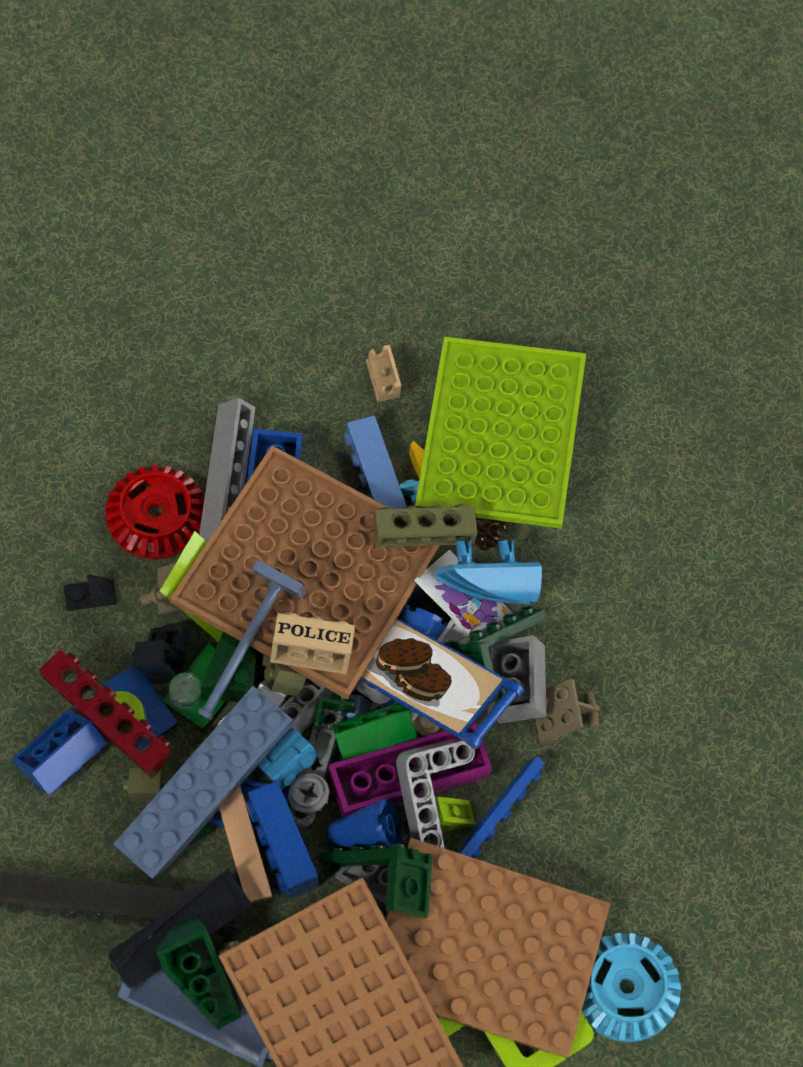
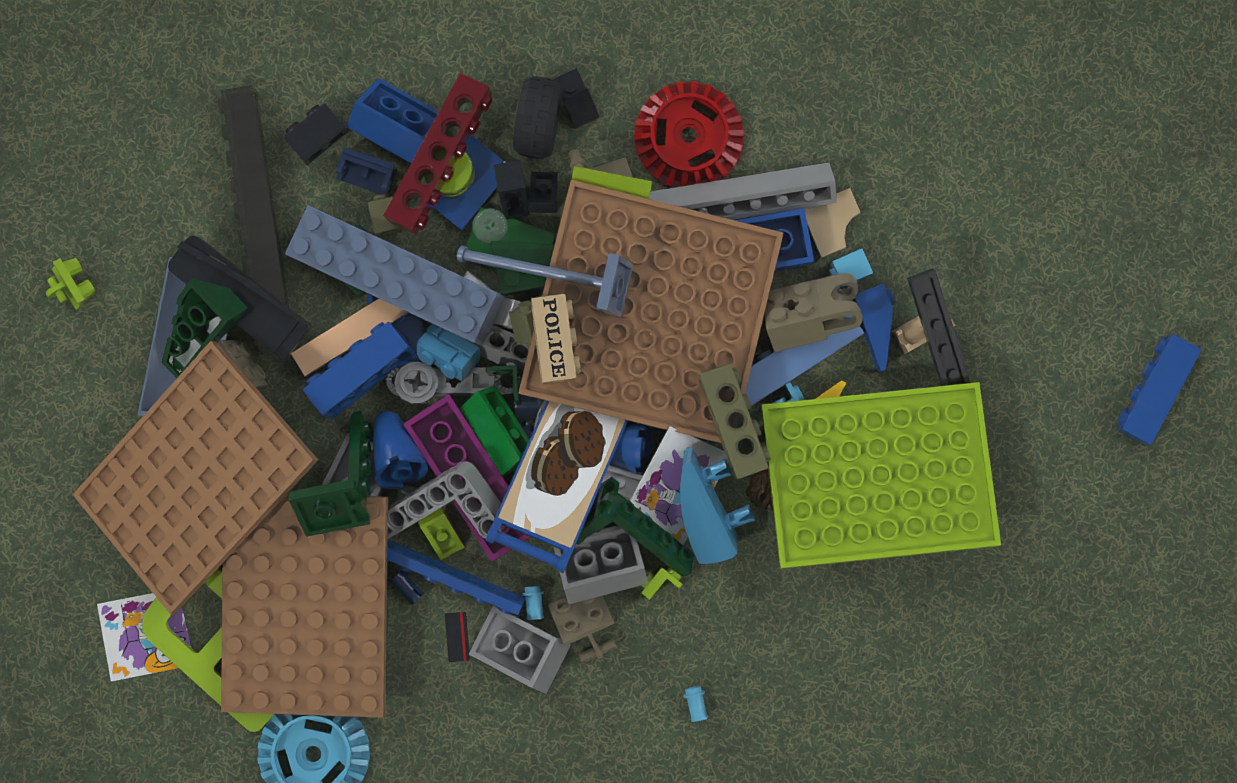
camera: 85 degrees right, 20 degrees up
(45, 827) = (315, 133): none -> black brick
(96, 791) = (365, 171): none -> dark blue hinge
(100, 621) = (537, 117): none -> black tyre
(269, 417) = (829, 222): none -> tan tile
(315, 414) = (853, 263): none -> medium azure brick
(346, 444) = (811, 311): none -> dark tan brick
(360, 404) = (876, 322): none -> blue slope
(389, 354) = (938, 328): none -> black plate
(485, 218) = (1158, 389): none -> blue brick
(496, 856) = (406, 587): none -> dark blue pin
(531, 750) = (533, 602): none -> medium azure pin
(541, 632) = (657, 580): none -> lime bracket
(549, 829) = (457, 636): none -> black sticker
(574, 774) = (519, 650): none -> light grey slope
(658, 640) = (696, 703): none -> medium azure pin

